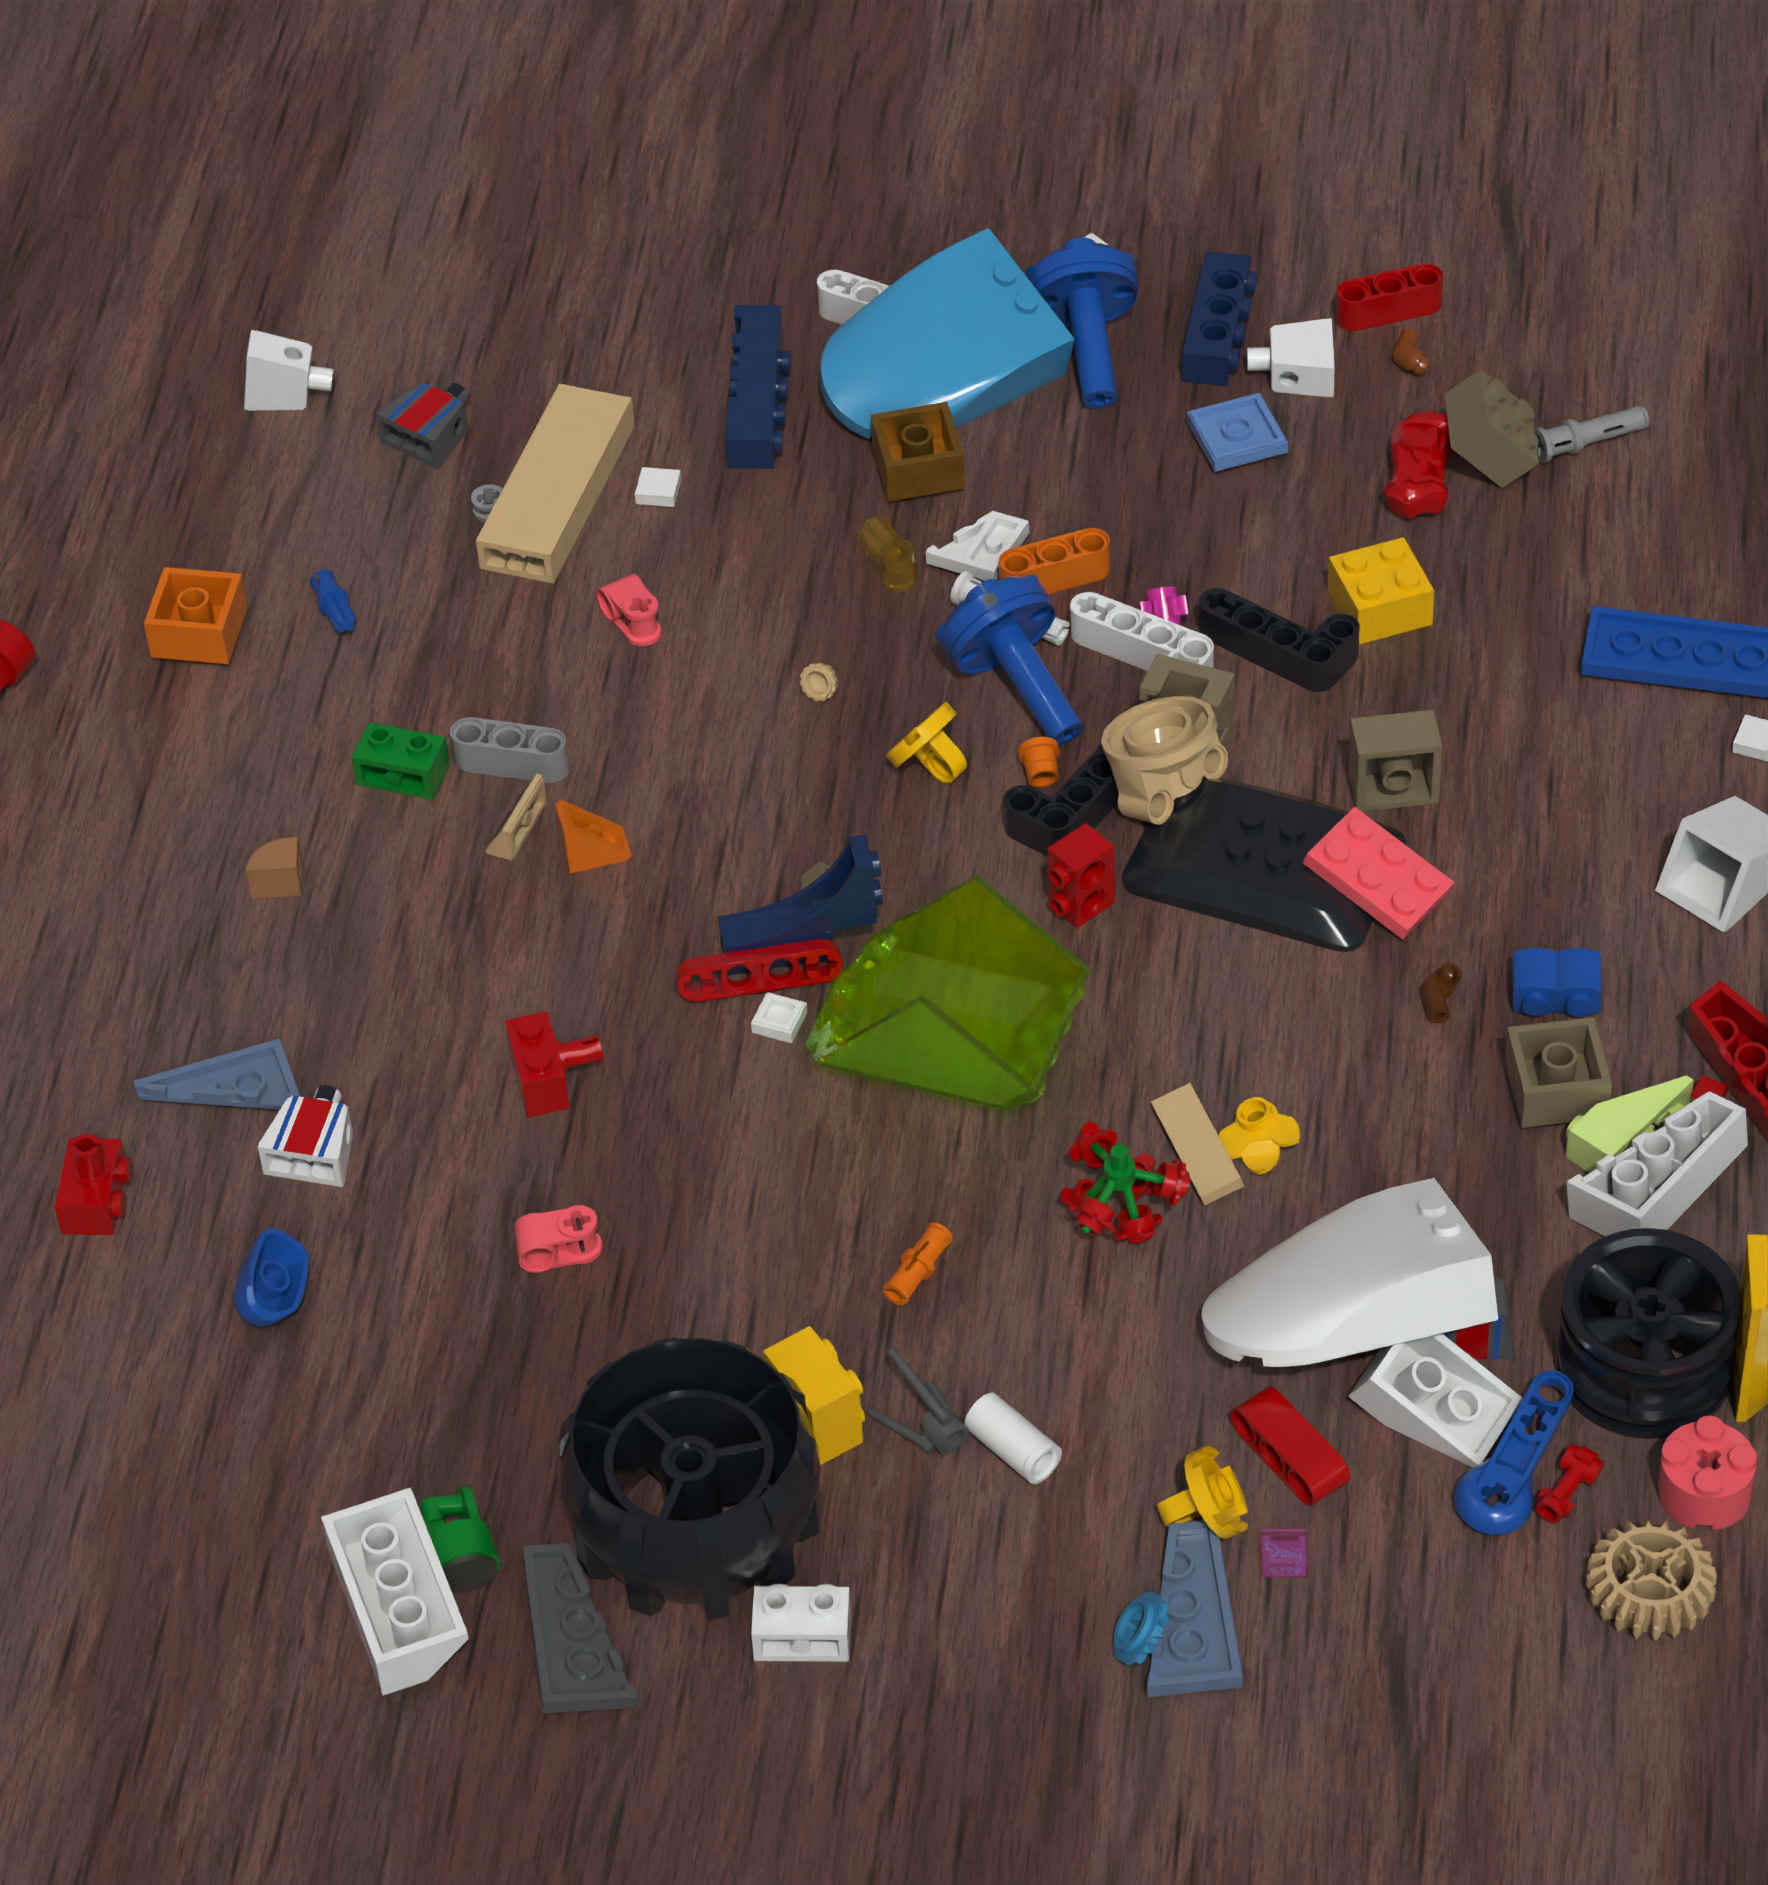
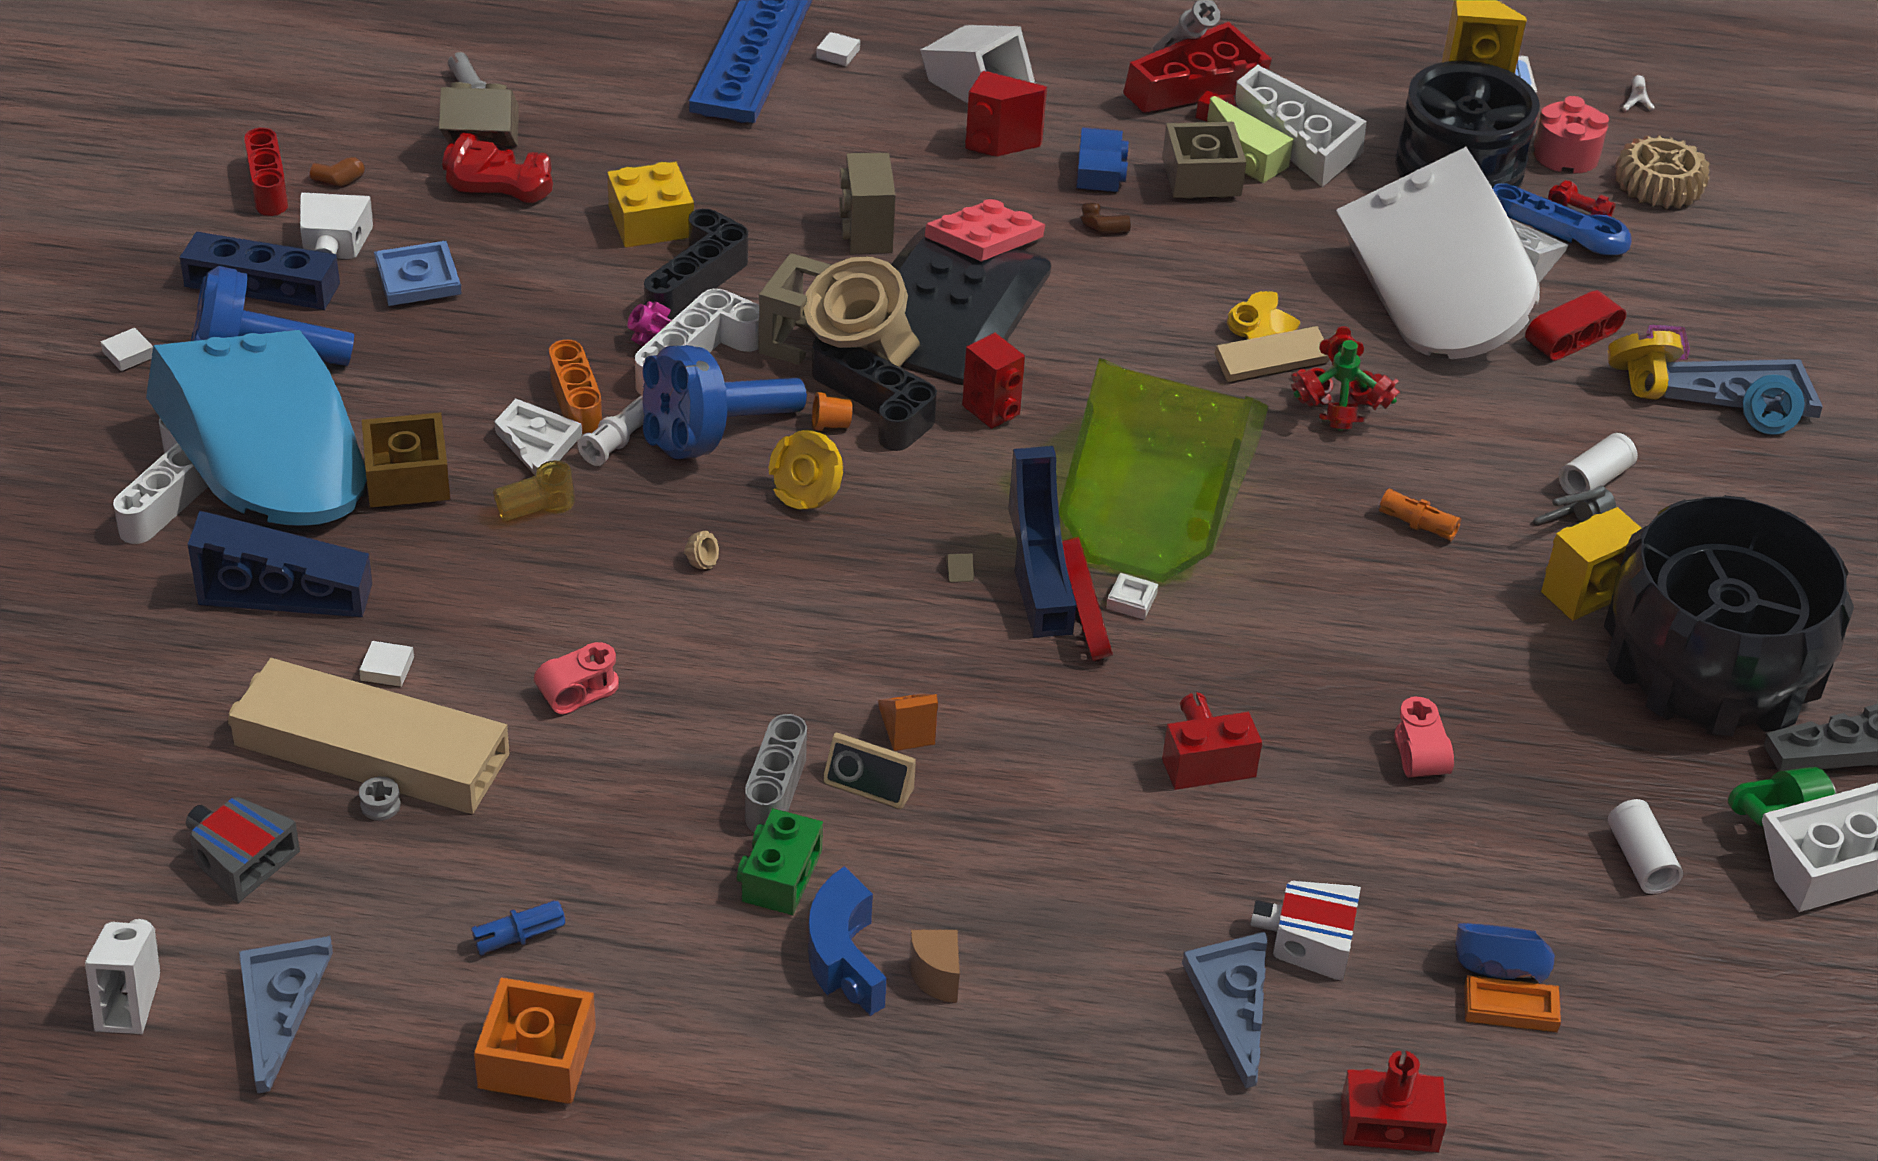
camera: 95 degrees left, 5 degrees down
(215, 1306) = (1512, 1003): none -> orange tile
(270, 470) = (277, 994): none -> sand blue wing
(303, 798) = (835, 917): none -> blue arch
(407, 1414) = (1645, 846): none -> white pin
(1600, 869) = (1004, 115): none -> red slope

